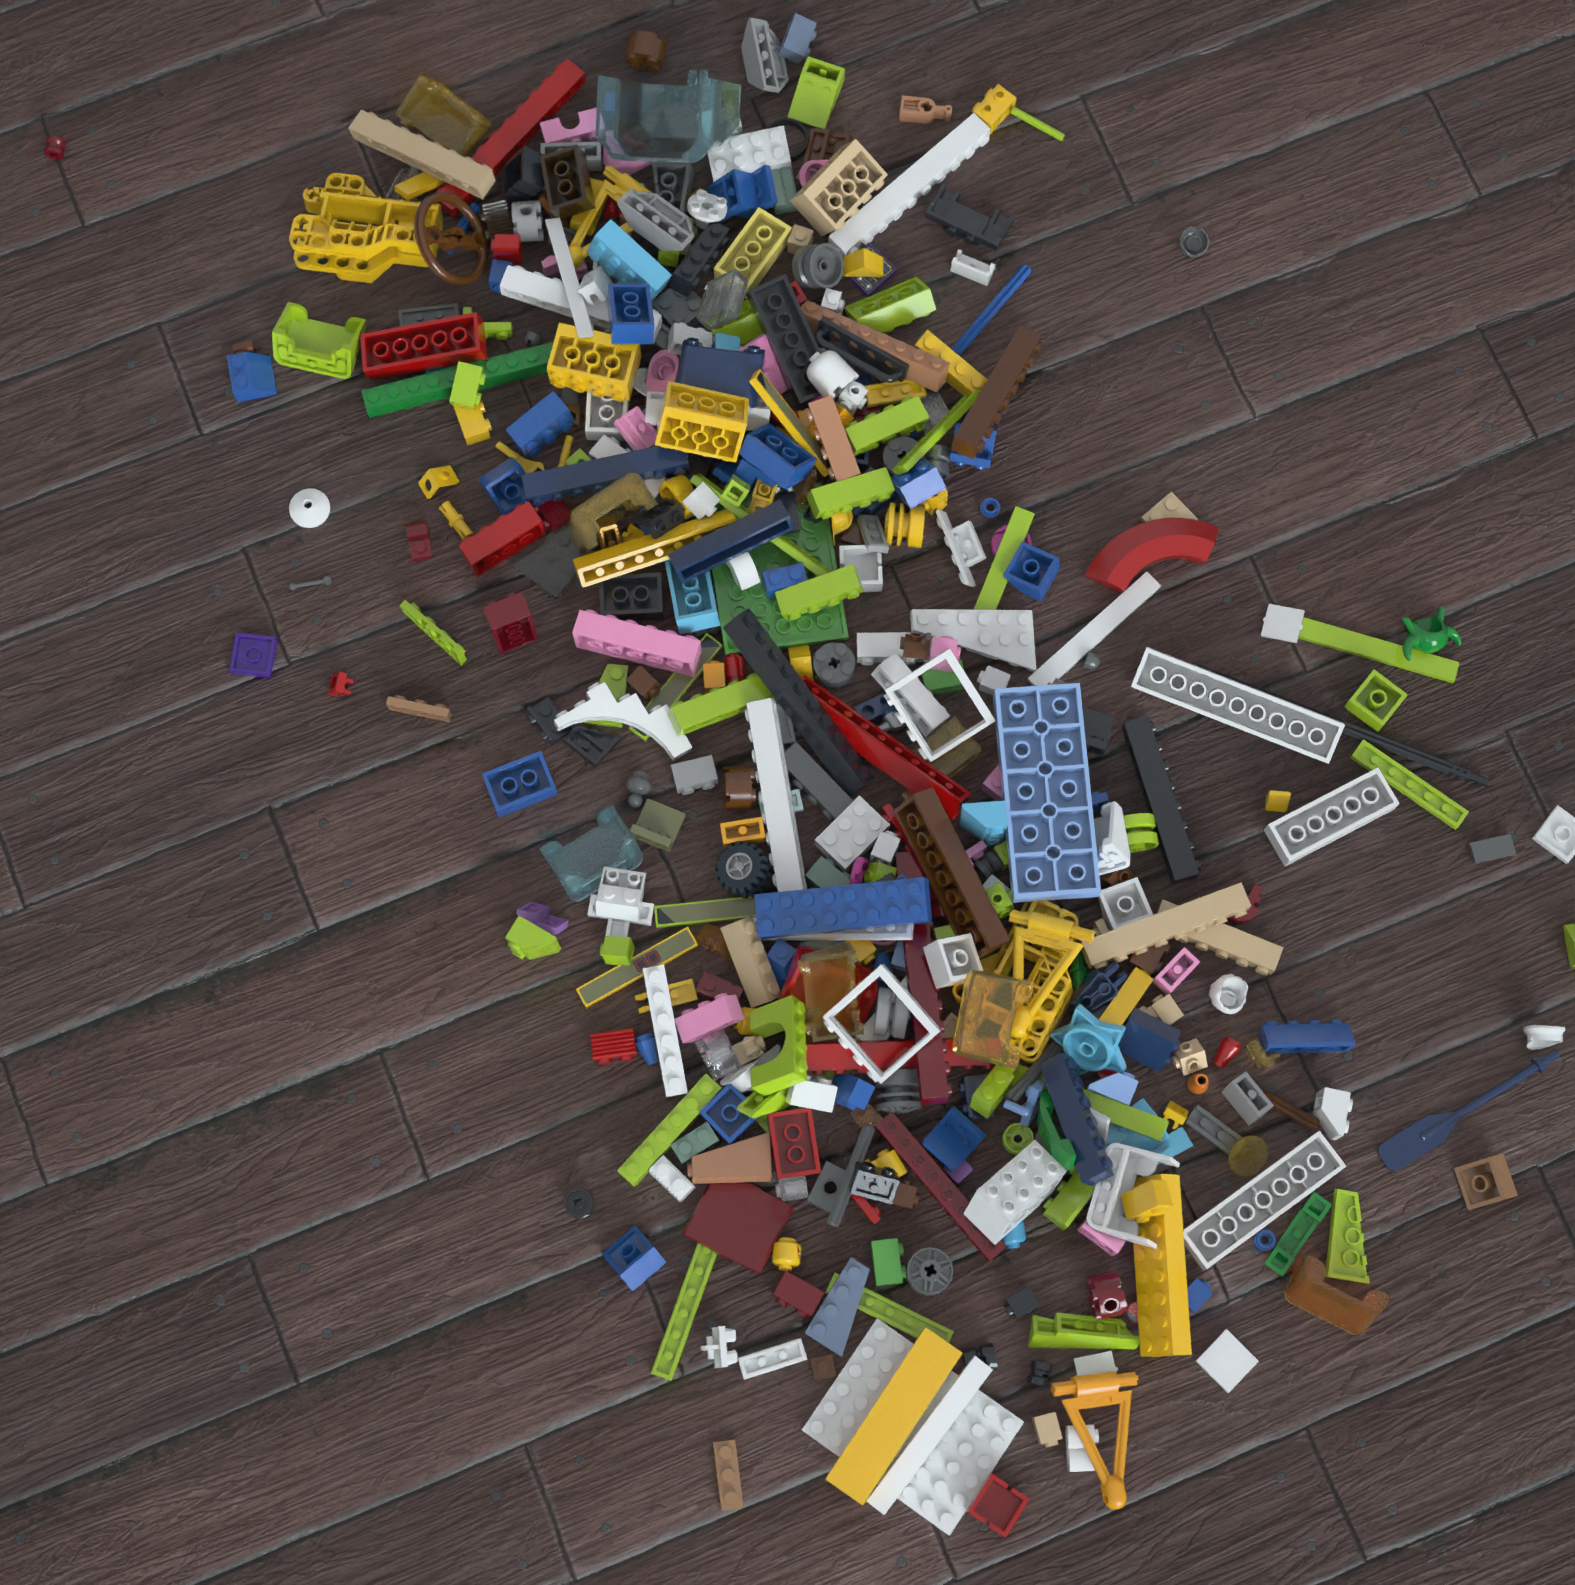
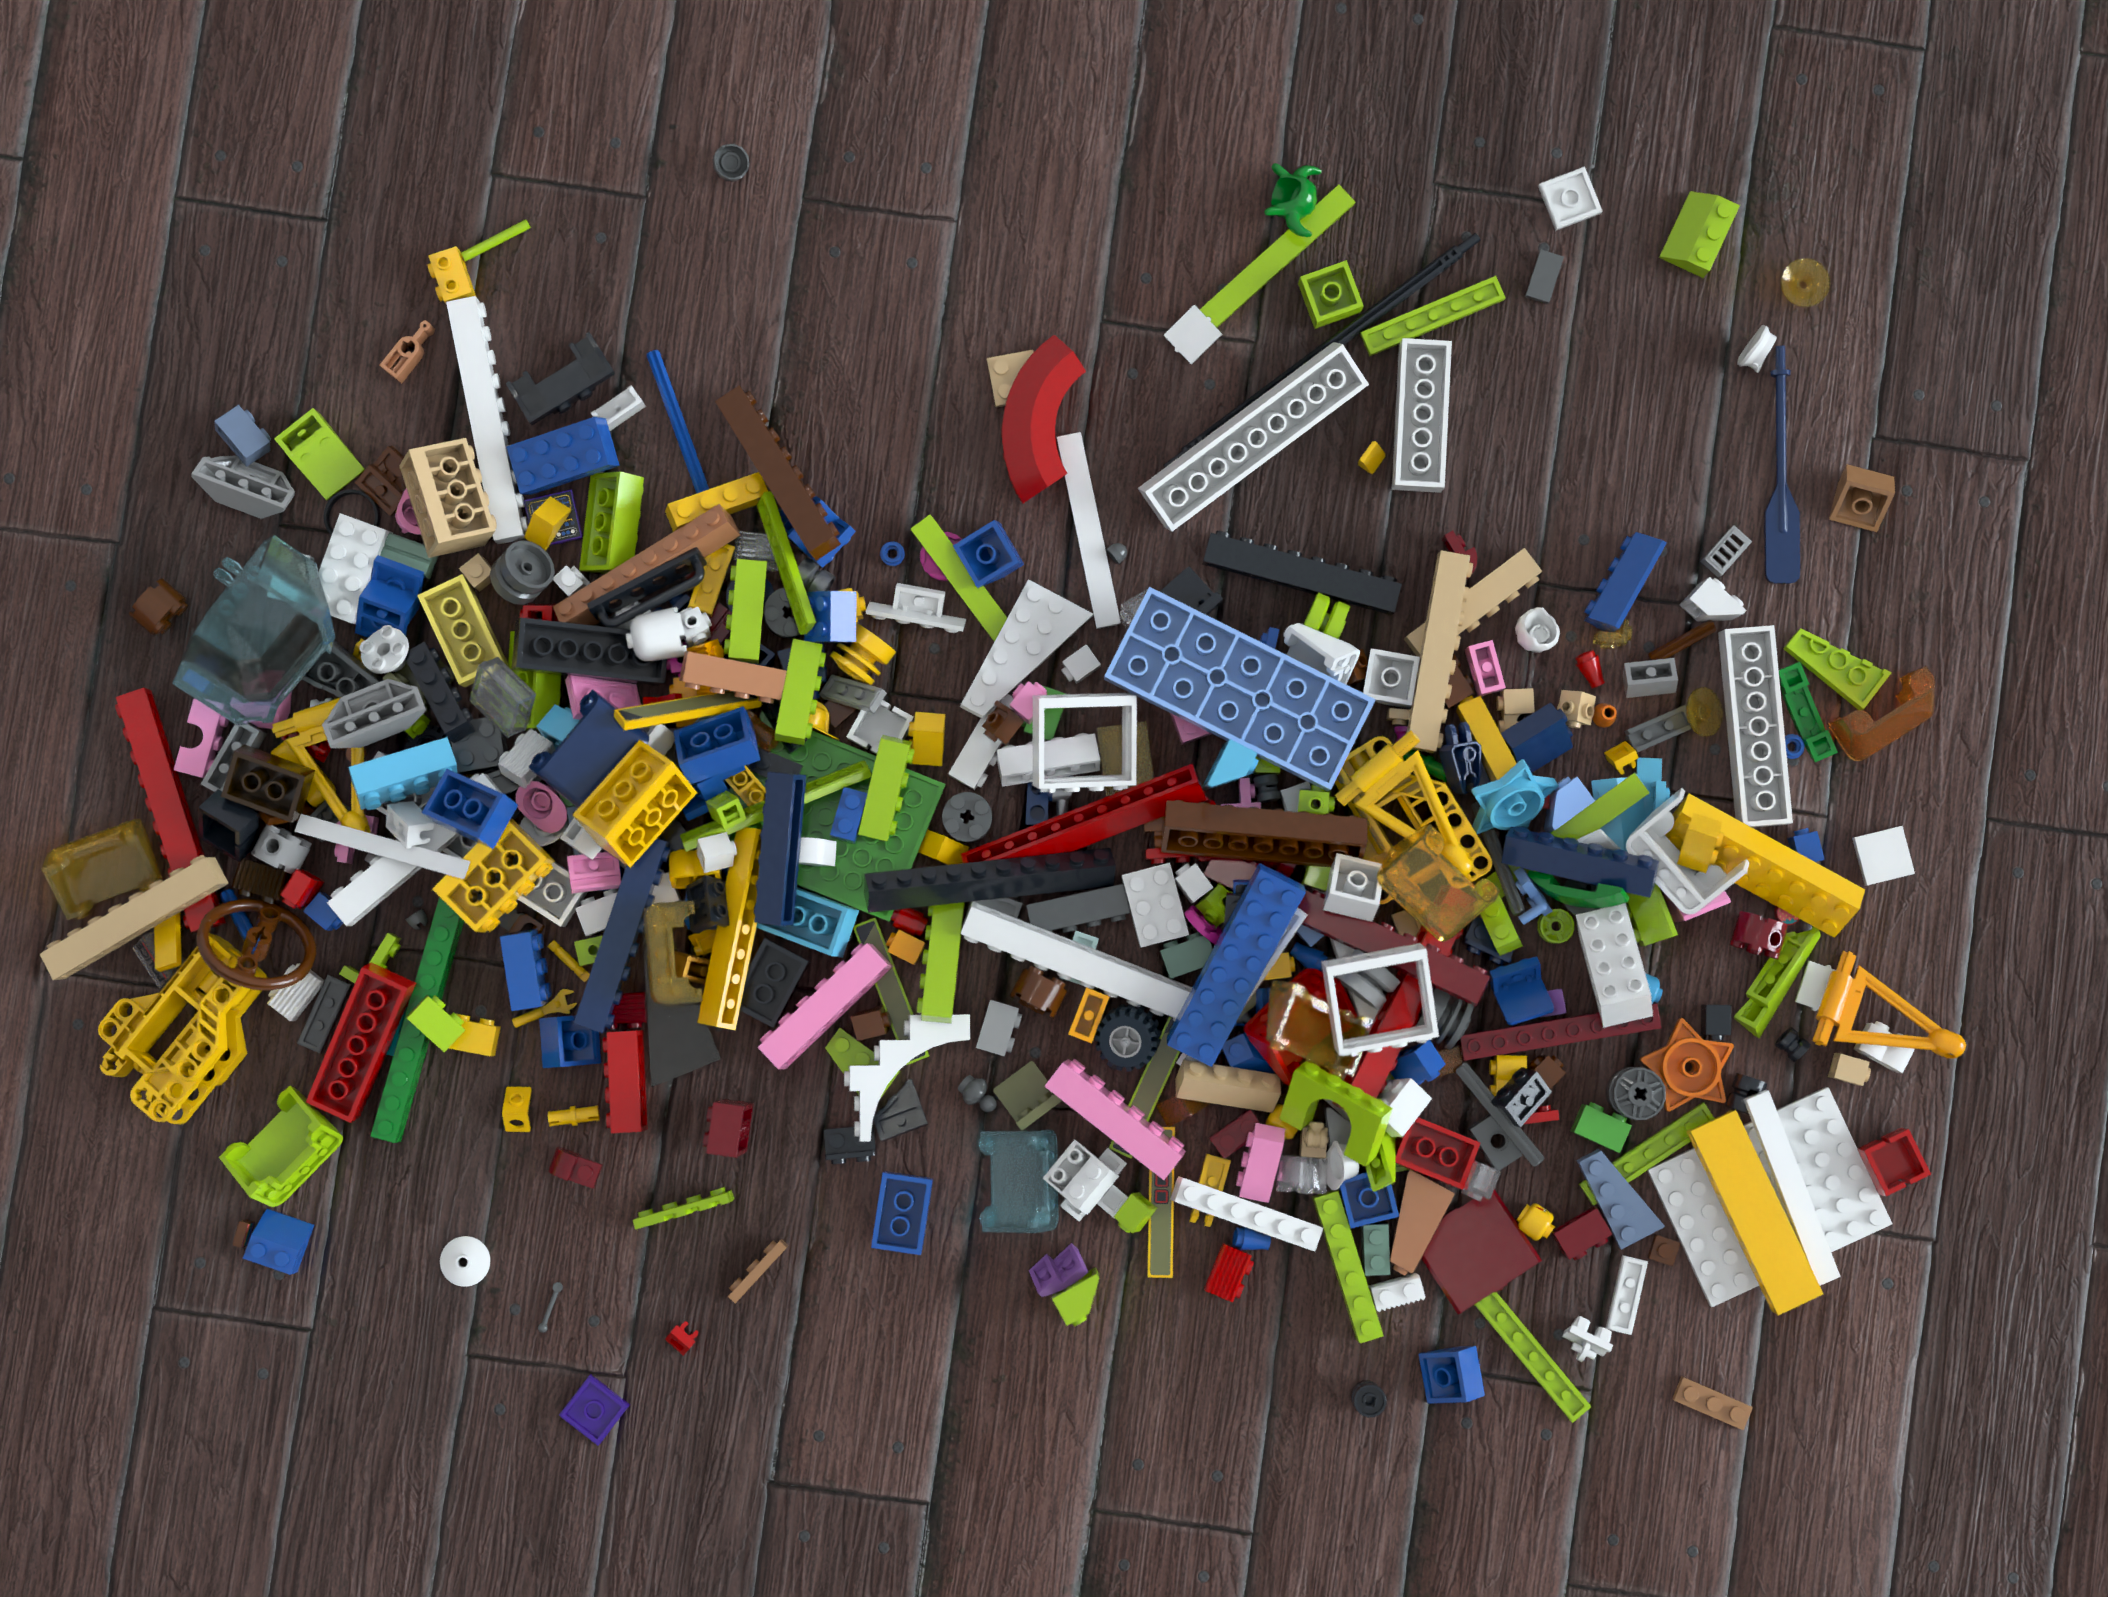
camera: 60 degrees left, 10 degrees up
(431, 289) = (295, 998): none -> white brick
(678, 894) = (1115, 1118): none -> bright pink brick
(873, 604) = (928, 738): none -> yellow brick
(916, 246) = (563, 455): none -> blue brick
(988, 1294) = (1706, 1059): none -> orange plate
(1361, 1103) = (1712, 564): none -> light grey slope

